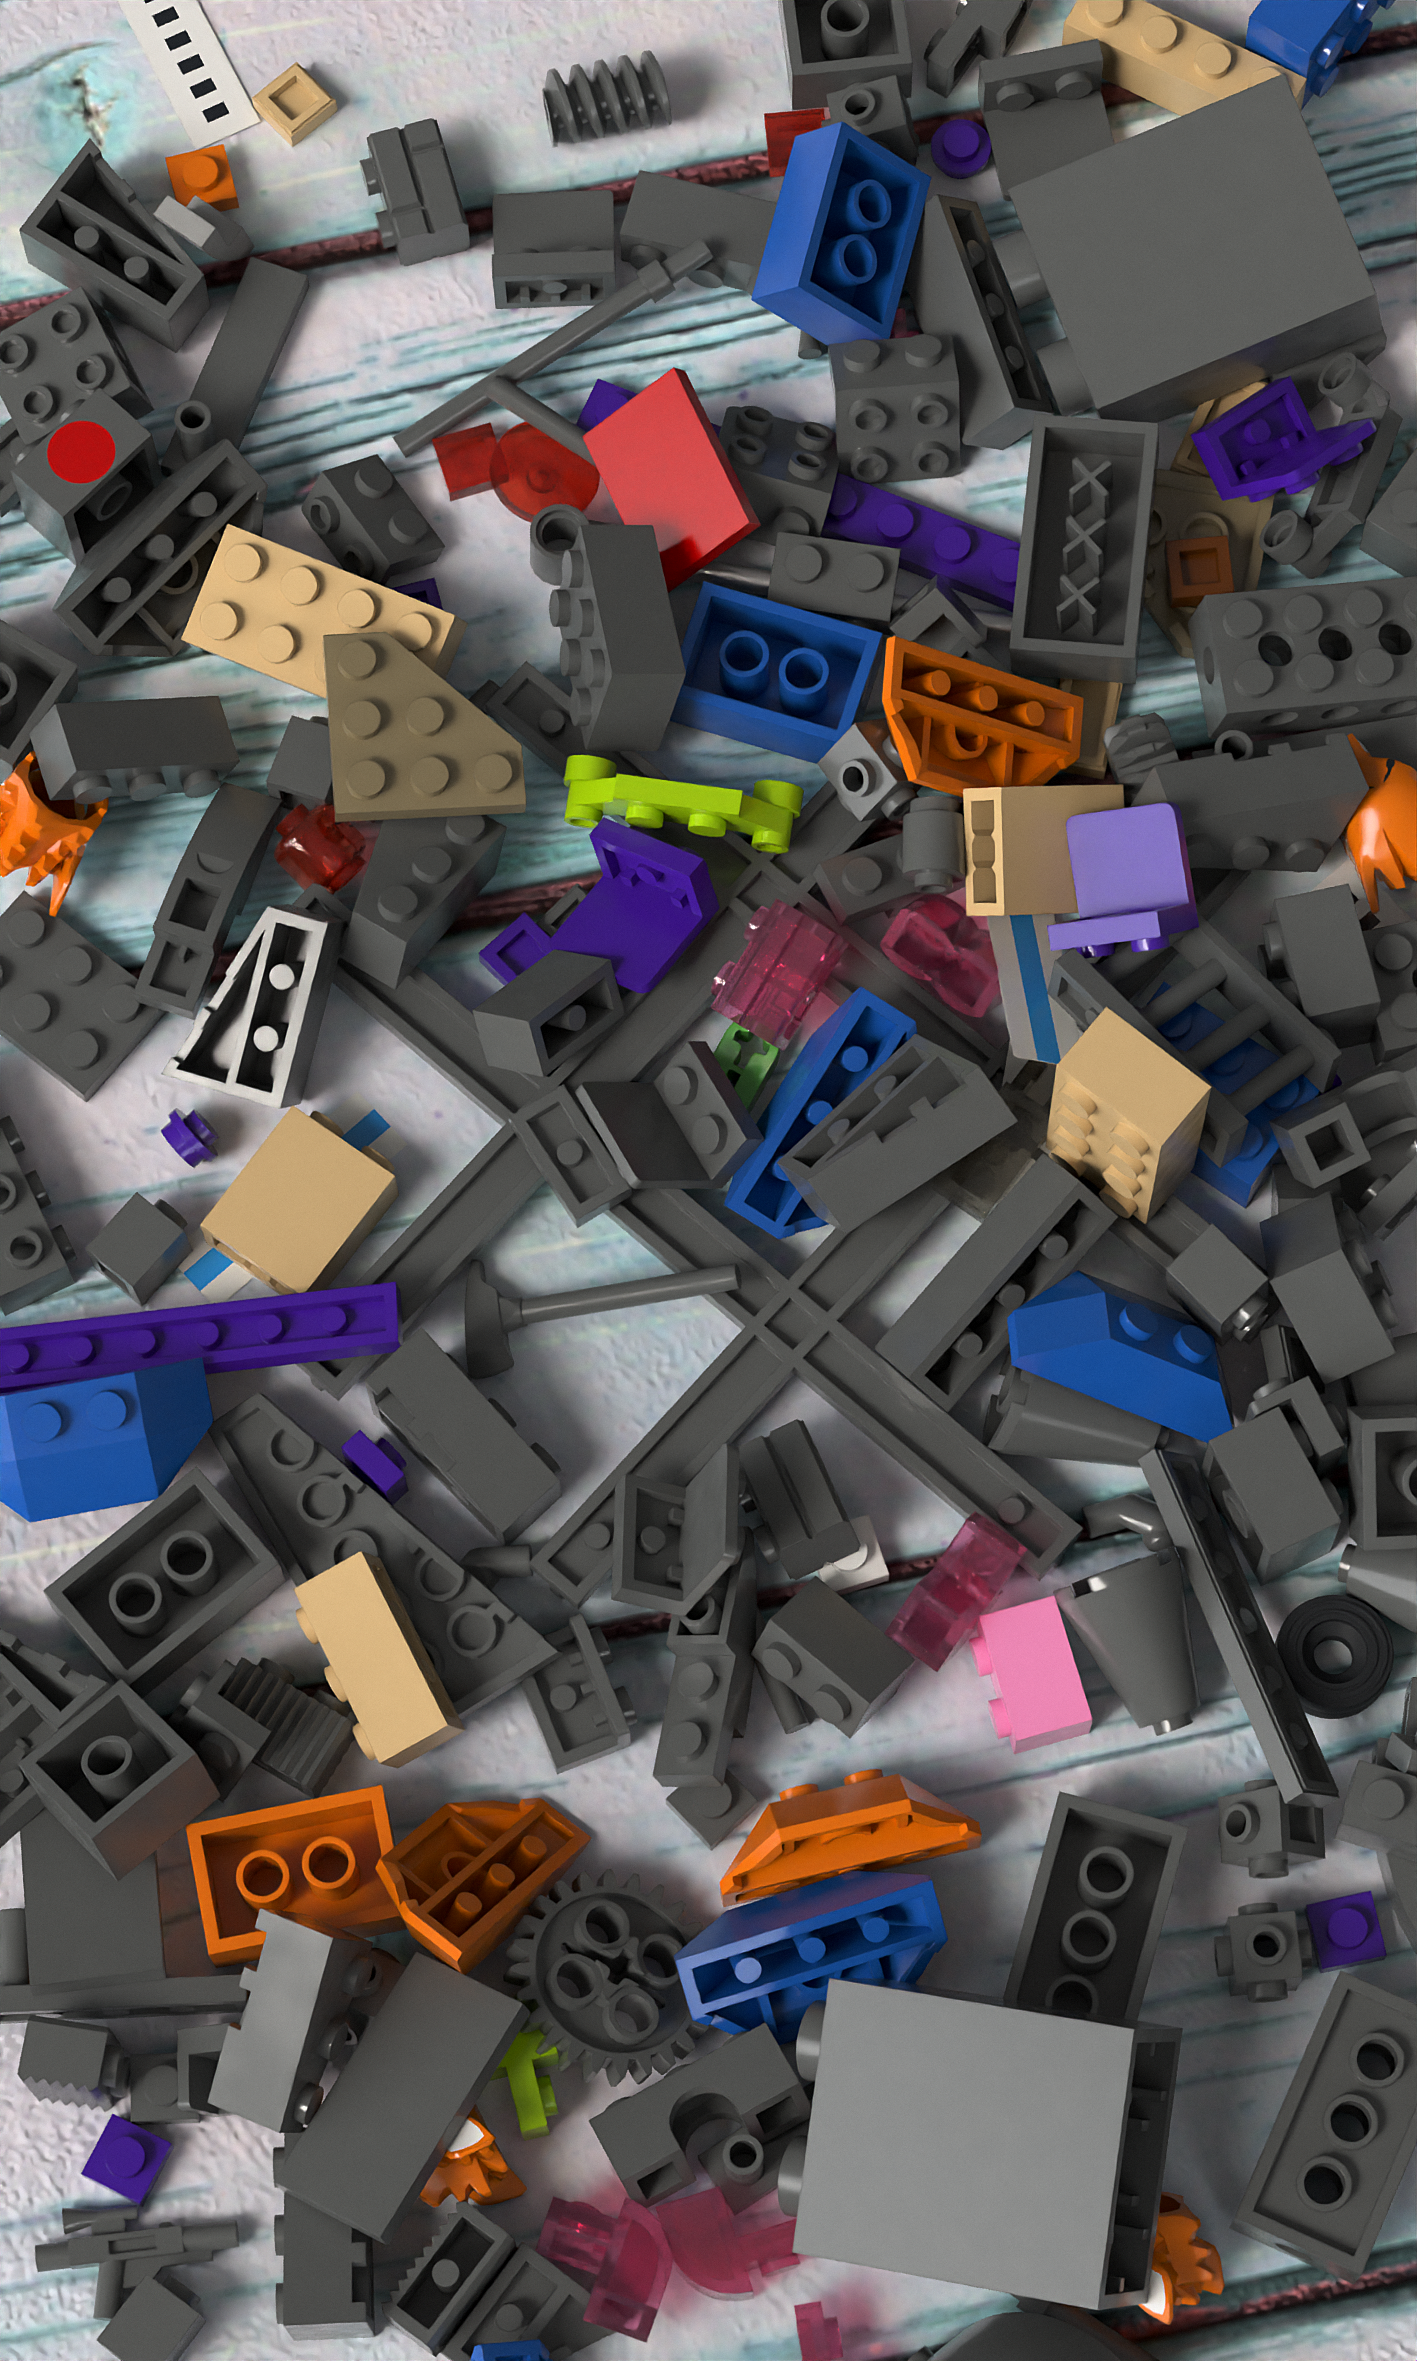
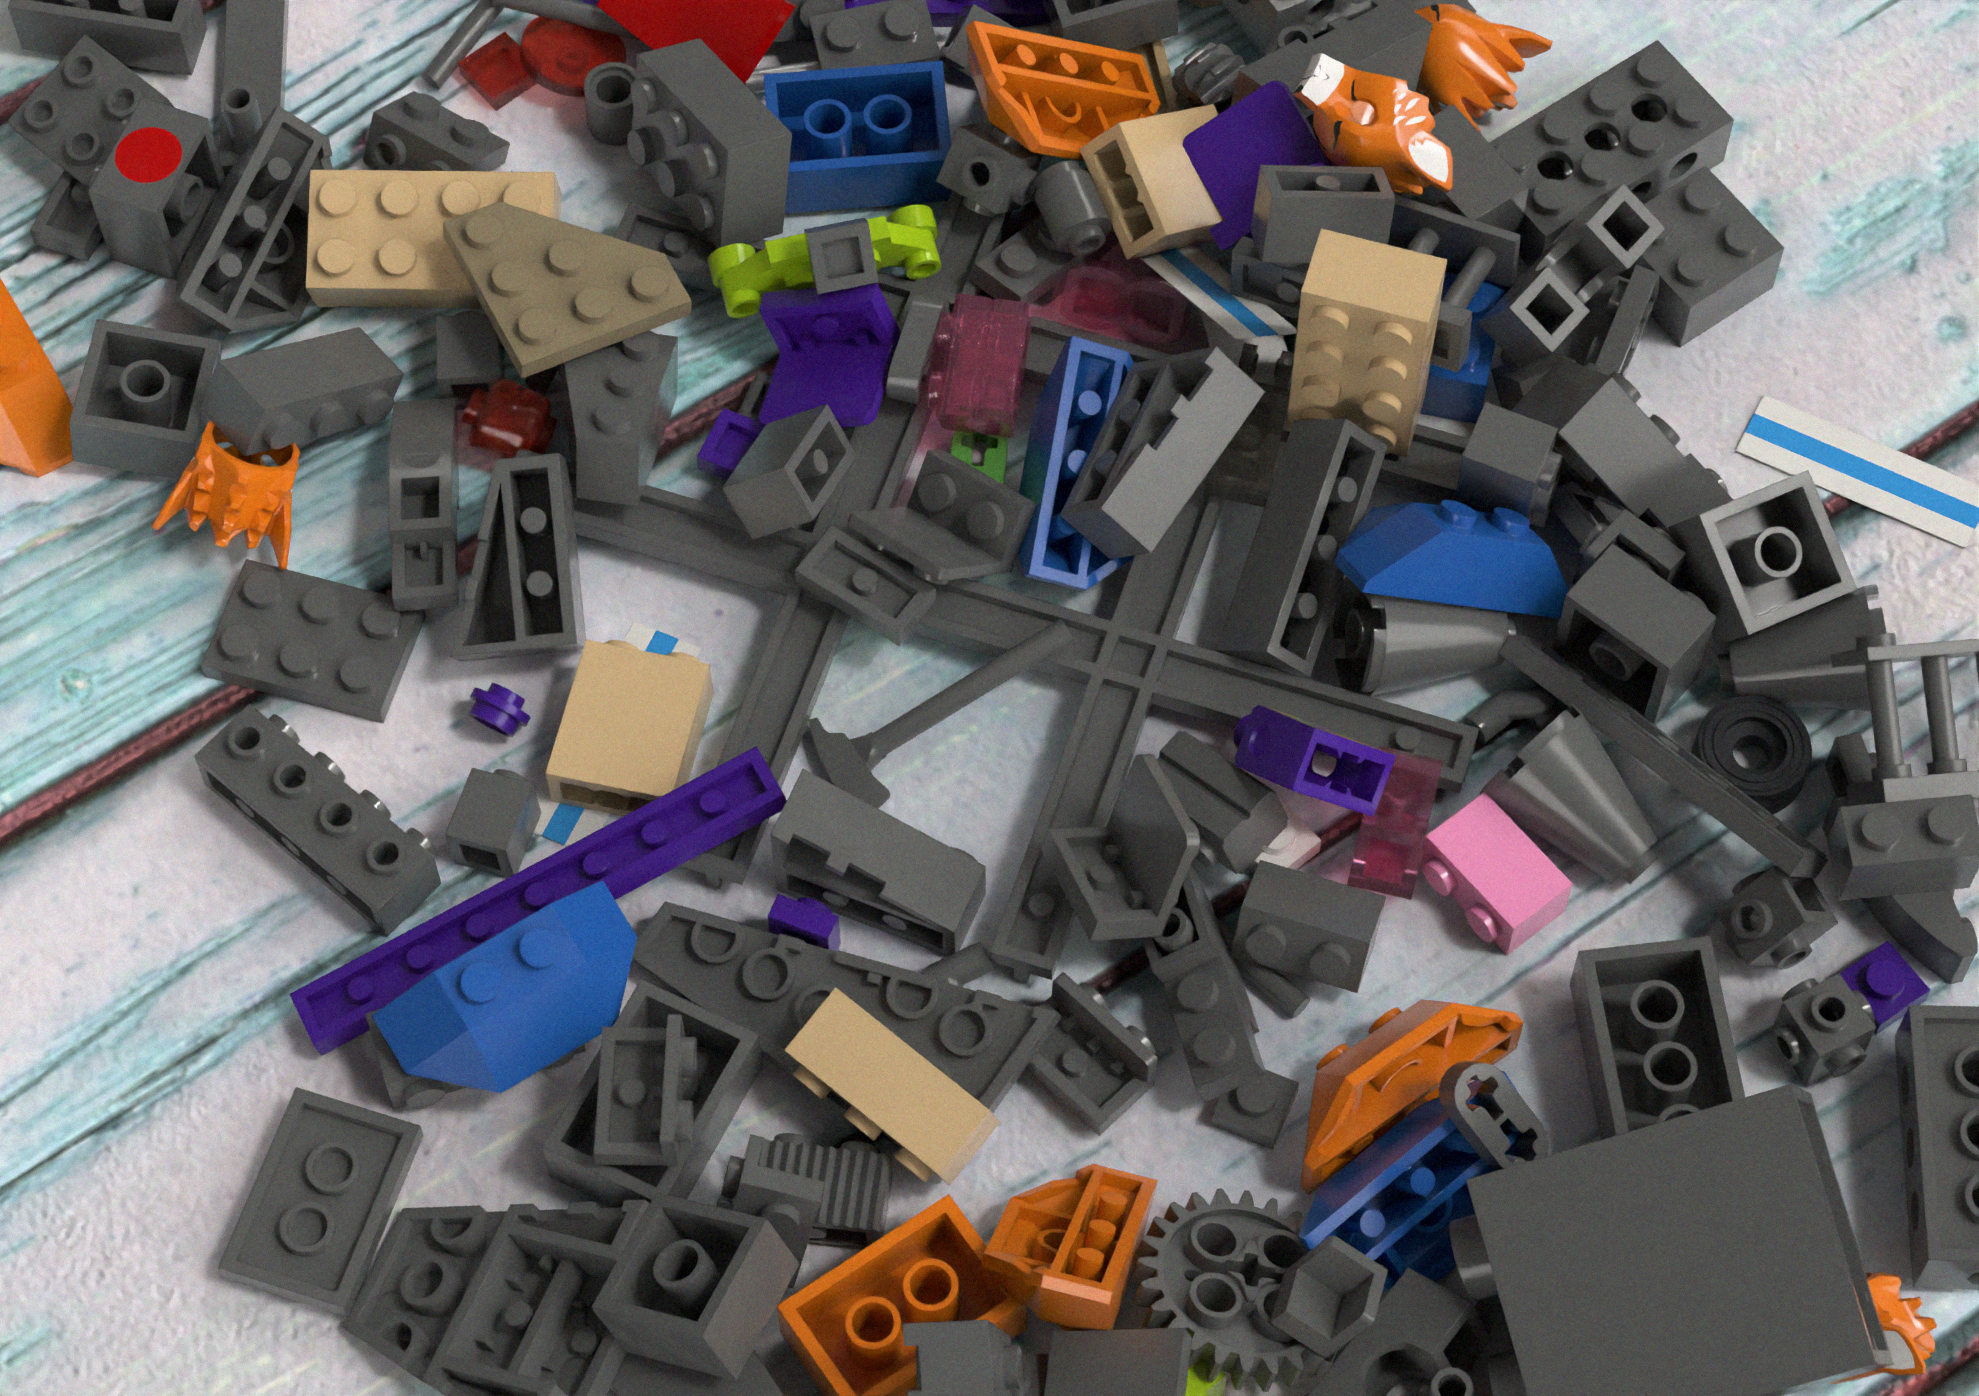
camera: 25 degrees left, 10 degrees down
(146, 1582) = (642, 1093): none -> dark grey bracket
(672, 2025) = (1329, 1296): none -> dark grey panel
(679, 820) = (841, 255): none -> dark grey plate
(722, 931) = (916, 349): none -> dark grey beam
(883, 1494) = (1283, 751): none -> dark purple torso
(913, 1915) = (1504, 1109): none -> dark grey beam
(1146, 967) = (1301, 200): none -> dark grey brick
(1242, 893) = (1375, 123): none -> orange piece

